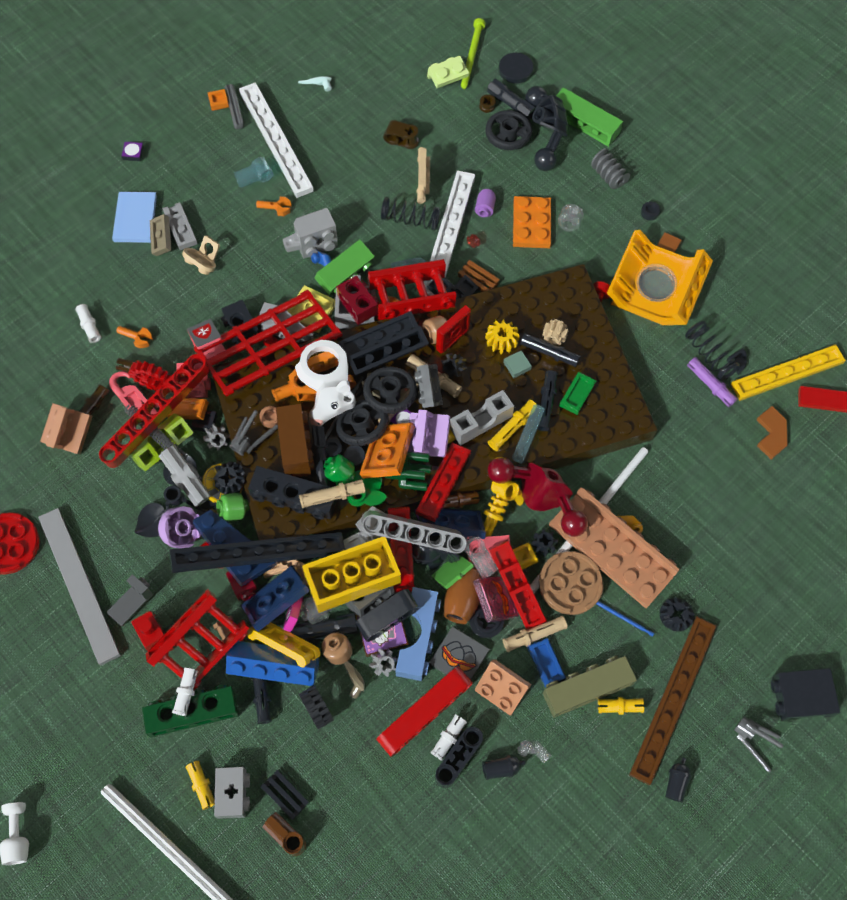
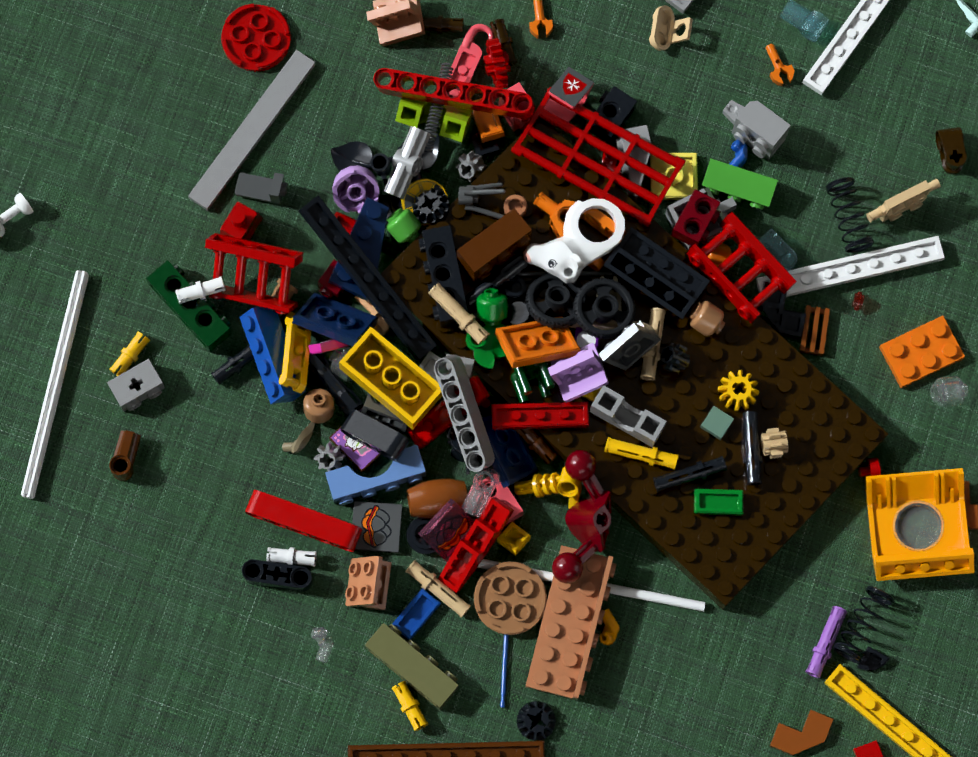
camera: 60 degrees right, 10 degrees up
(271, 780) = (166, 415): black tile -> none
(316, 707) = (252, 417): black tyre -> none
(452, 572) = (453, 474): bright green piece -> none
(453, 329) = (712, 335): red tile -> none
(485, 203) = (914, 288): medium lavender brick -> none
(501, 767) = (290, 620): black piece -> none
(528, 433) = (638, 473): clear light blue axle -> none
(548, 538) = (537, 558): black gear -> none

